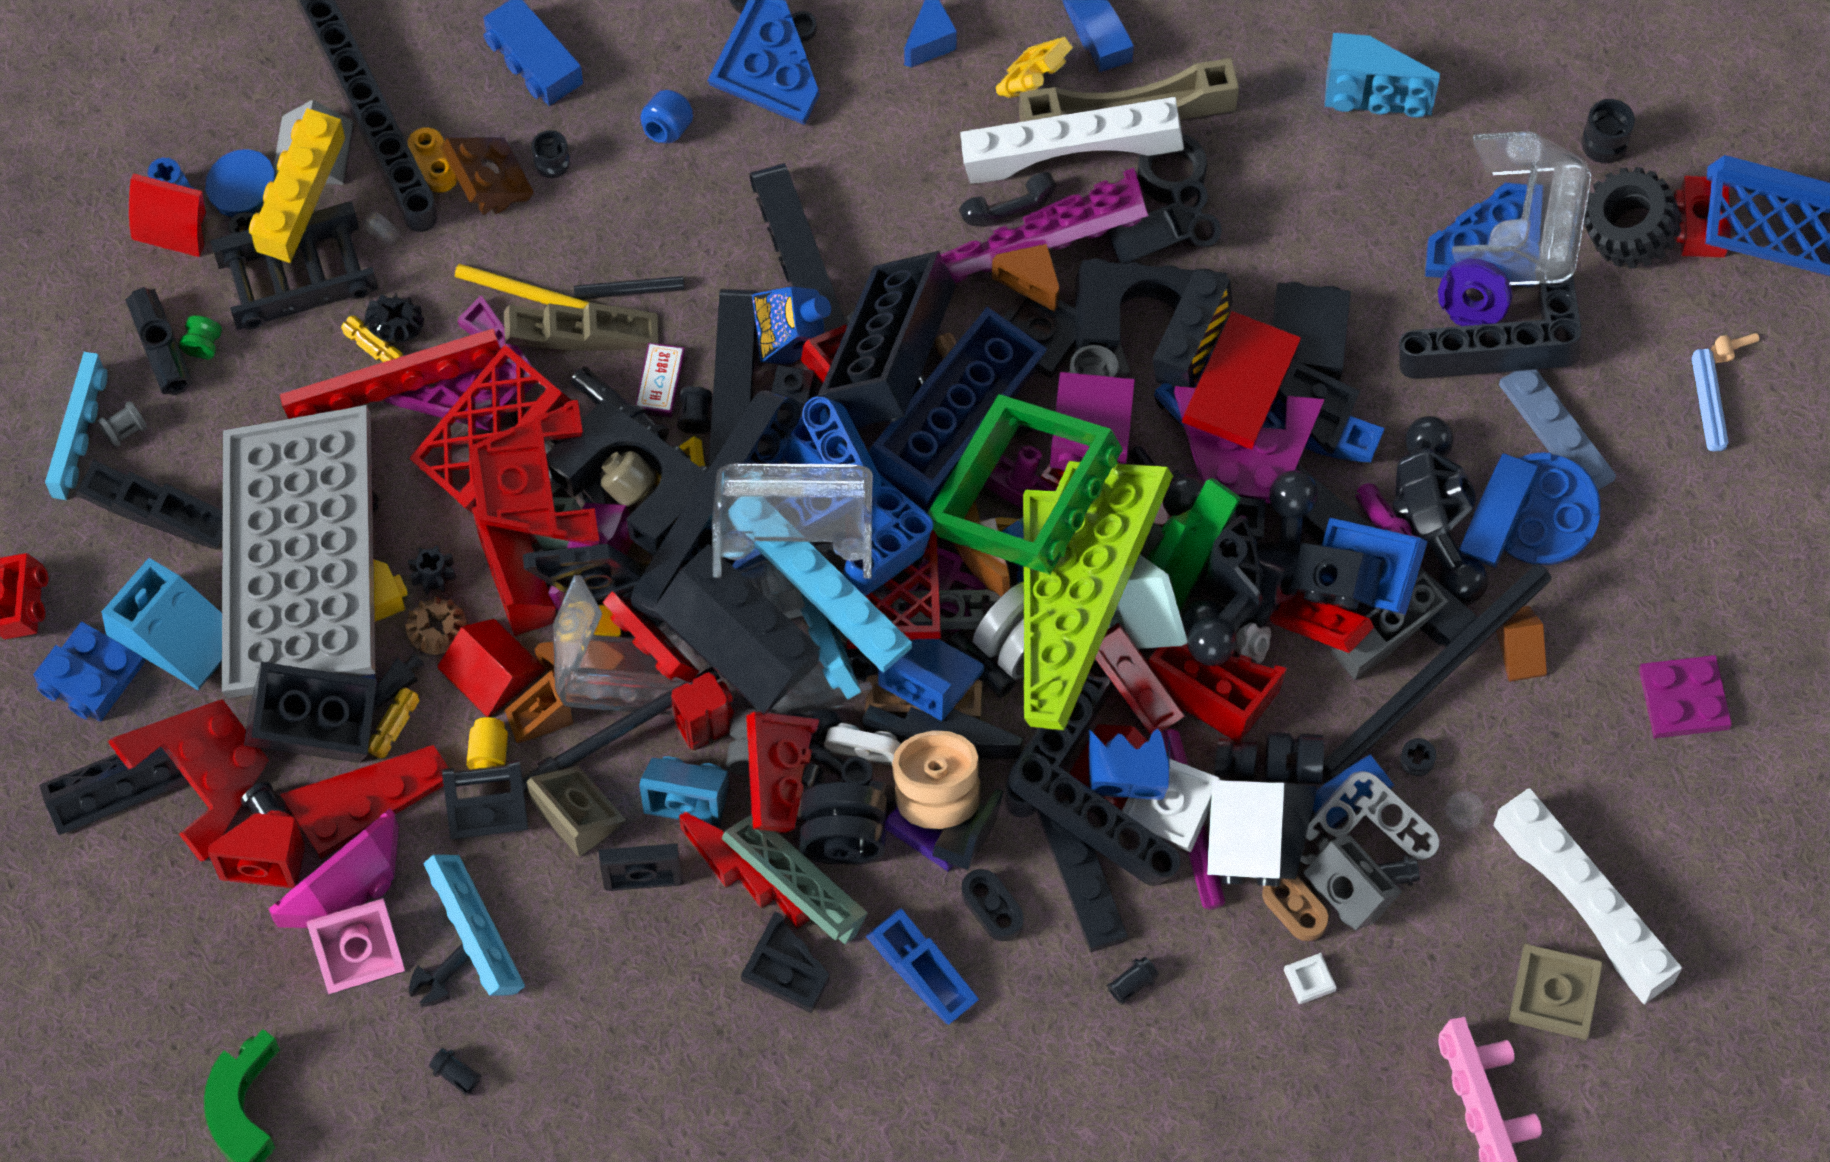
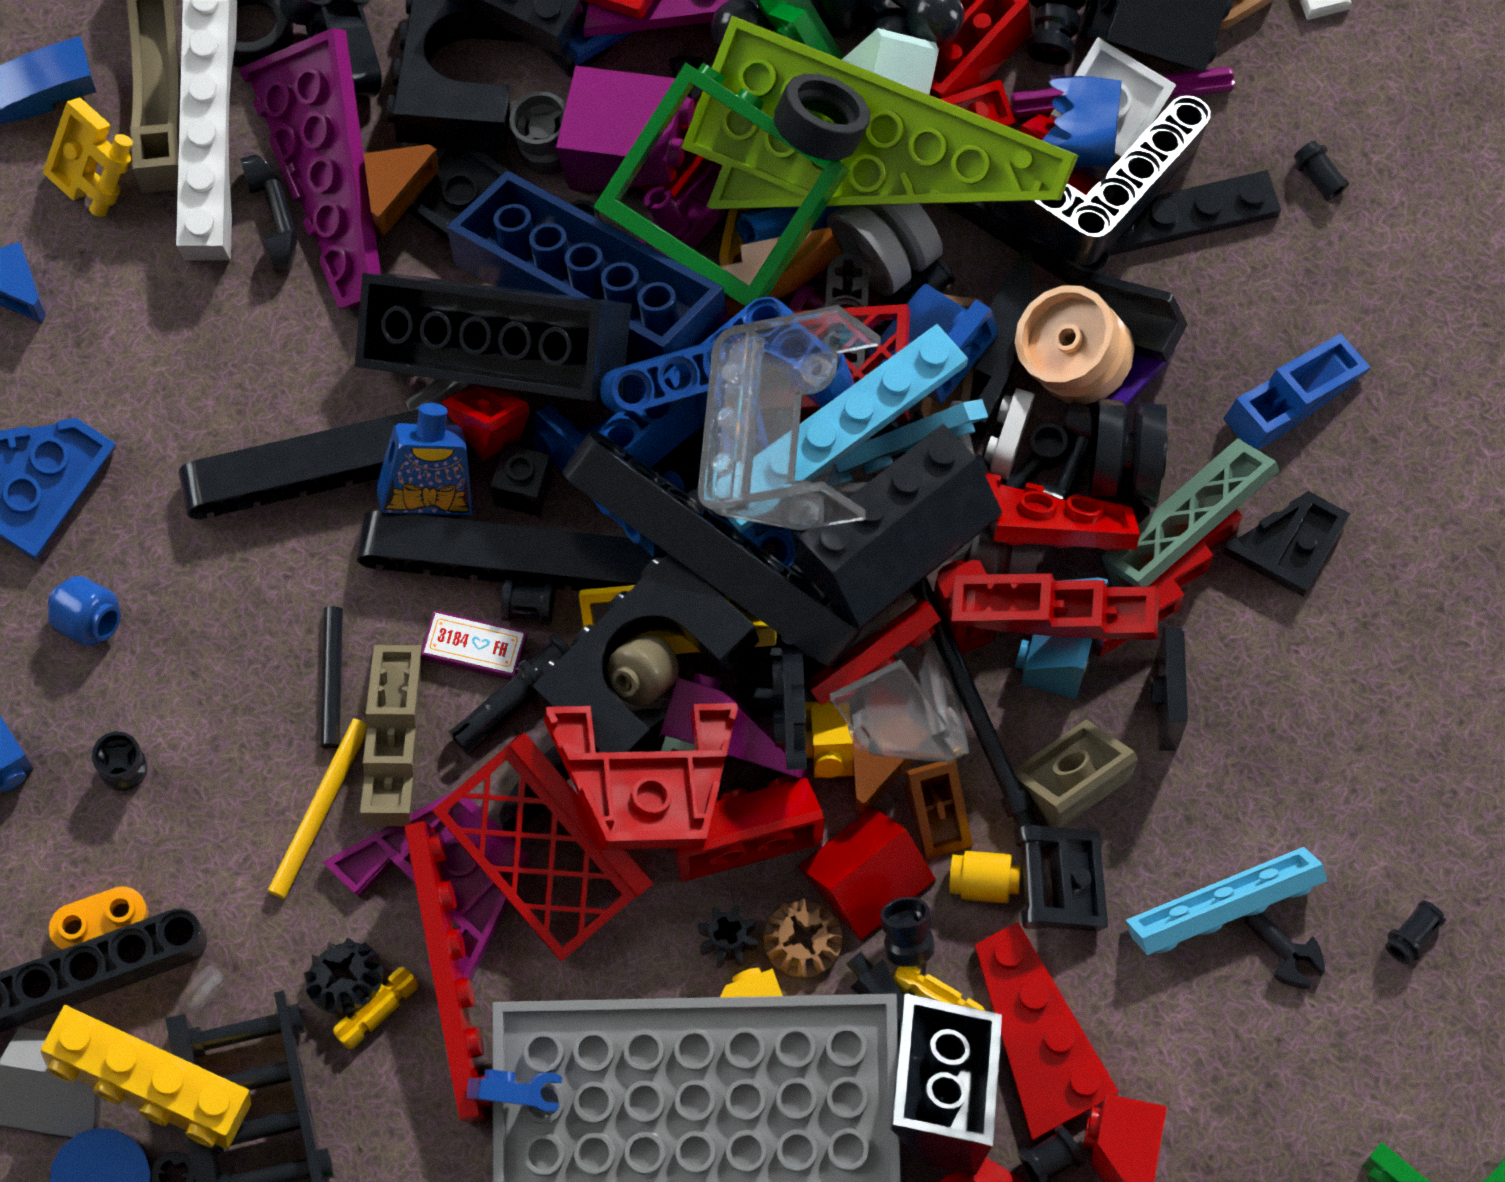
camera: 85 degrees left, 5 degrees up
(295, 414) = (501, 1087): none -> blue plate
(346, 879) = (1159, 1055): dark pink wedge -> none
(355, 946) = (1250, 1045): bright pink slope -> none
(437, 691) = (907, 931): none -> black wheel
(481, 183) = (163, 844): reddish brown piece -> none
(685, 756) = (1055, 608): none -> red slope
(993, 906) = (1221, 311): black plate -> none
(1098, 524) = (831, 99): none -> black tyre

